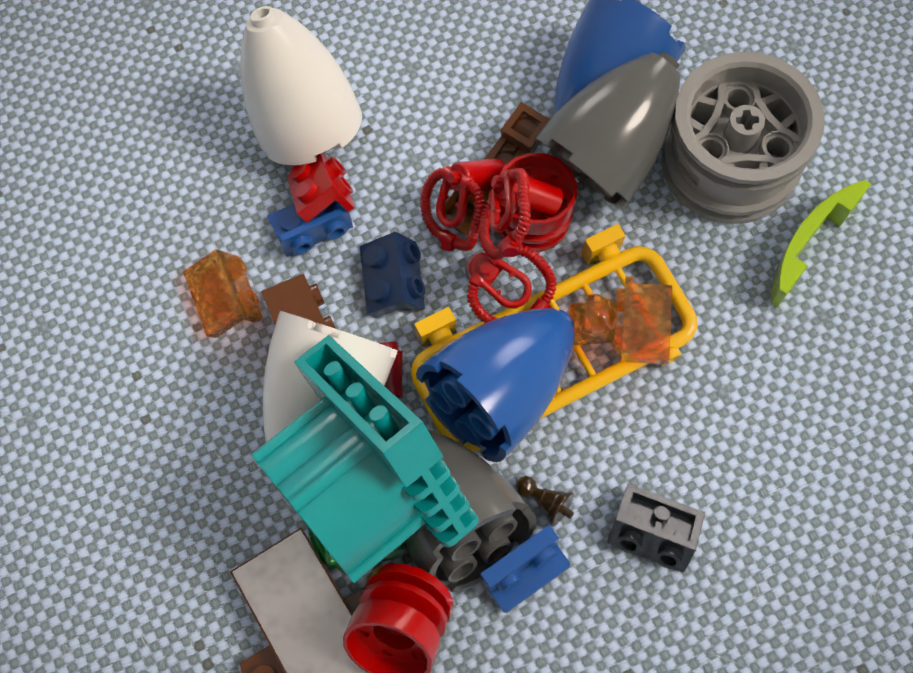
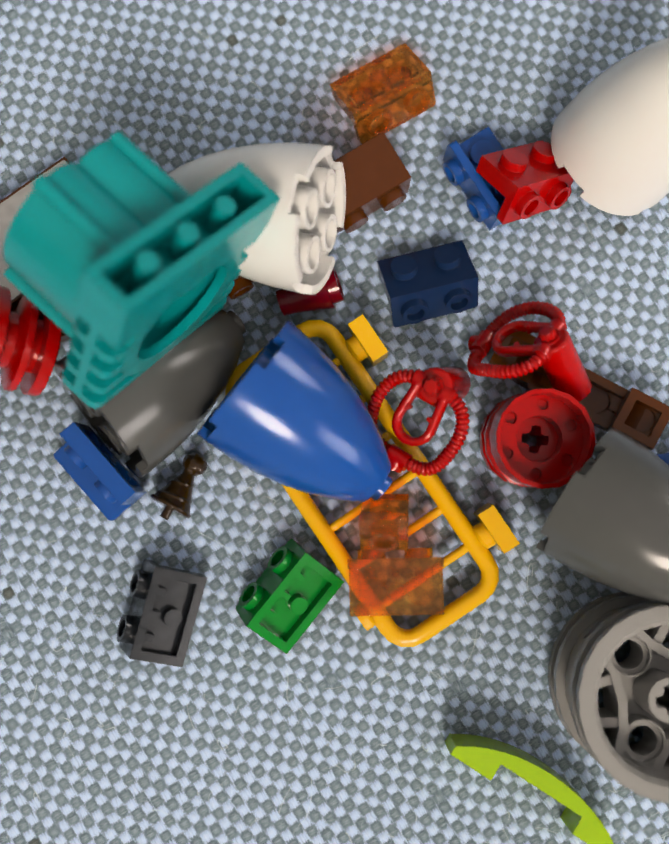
camera: 75 degrees right, 15 degrees up
(512, 190) = (531, 418): red piece -> none
(647, 416) = (287, 596): none -> green bracket

